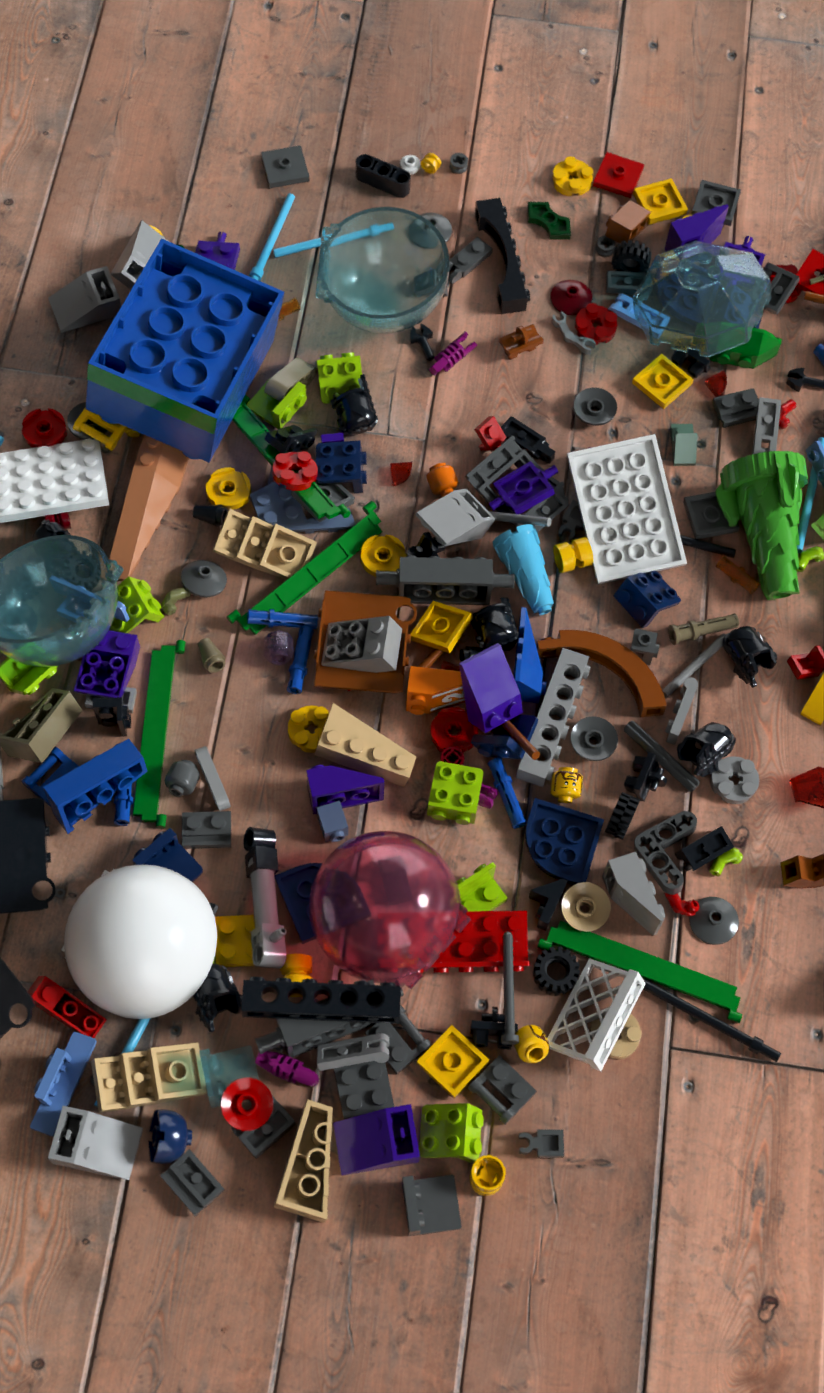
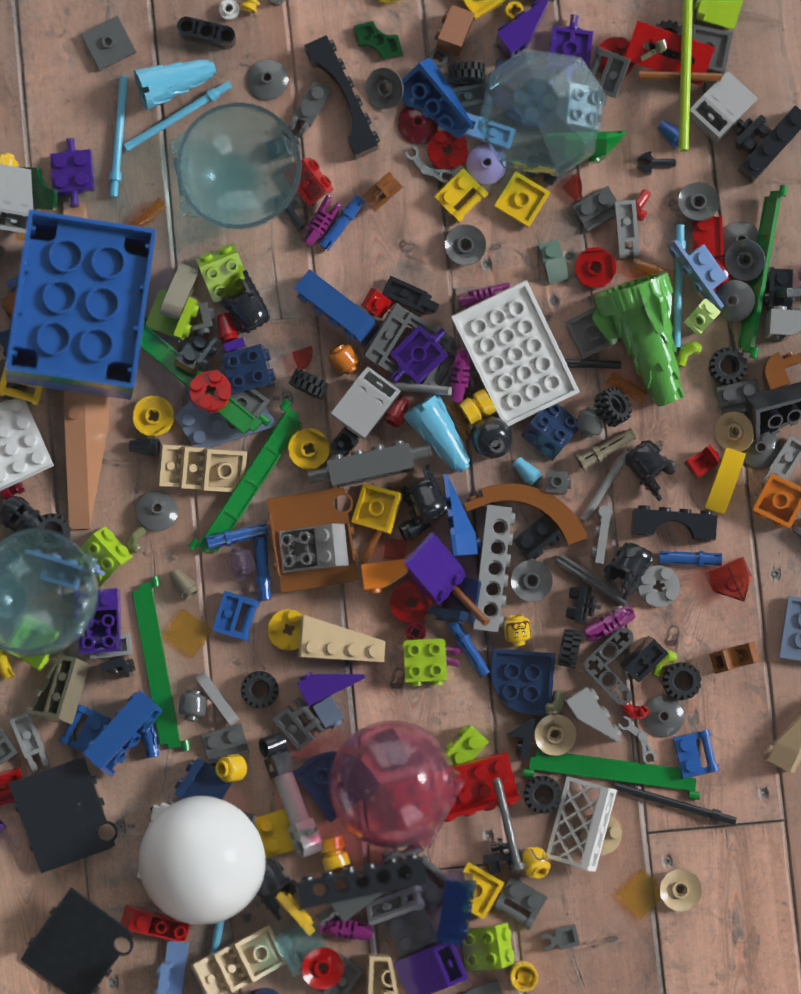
camera: 10 degrees left, 20 degrees up
(200, 707) = (188, 633): none -> clear yellow piece
(205, 853) = (231, 768): none -> yellow head
(234, 1030) = (292, 908): none -> yellow plate
(251, 695) = (229, 614): none -> blue plate
(265, 794) = (246, 689): none -> black tyre
(288, 828) = (294, 727): none -> dark grey plate
(307, 419) = (207, 316): none -> dark grey bracket
(328, 424) = (227, 329): none -> red cone
(331, 203) = (163, 82): none -> medium azure cone
(400, 491) = (308, 383): none -> black tyre
(425, 1066) = (456, 908): none -> clear blue brick
(448, 431) = (336, 307): none -> blue wedge
(450, 319) = (313, 183): none -> red bracket
(479, 356) = (347, 214): none -> blue pin
(482, 544) = (395, 413): none -> red cone
(540, 251) = (377, 90): none -> dark grey dish
(550, 566) = (458, 419): none -> clear orange pin
(562, 518) = (460, 374): none -> magenta hinge
(581, 586) = (491, 437): none -> black cylinder
(591, 271) = (431, 94): none -> blue wedge
(594, 874) = (558, 703): none -> olive arm
(597, 357) = (455, 190): none -> yellow plate
(609, 699) = (537, 537): none -> black bracket
(613, 629) = (527, 472): none -> medium azure cone
(631, 352) = (484, 174): none -> lavender dish
(650, 1117) = (640, 893): none -> clear yellow piece
(671, 803) = (609, 623): none -> magenta hinge
(685, 936) = (642, 736): none -> light grey piece
(692, 597) = (589, 423): none -> dark grey head
(707, 1111) = (690, 895): none -> tan dish
(717, 449) = (589, 278): none -> red plate
(719, 585) = (612, 407): none -> black tyre
(736, 969) = (689, 757): none -> blue plate
(750, 872) = (693, 674): none -> black tyre
(780, 759) = (690, 558): none -> blue pin
(792, 725) = (701, 526): none -> black arch

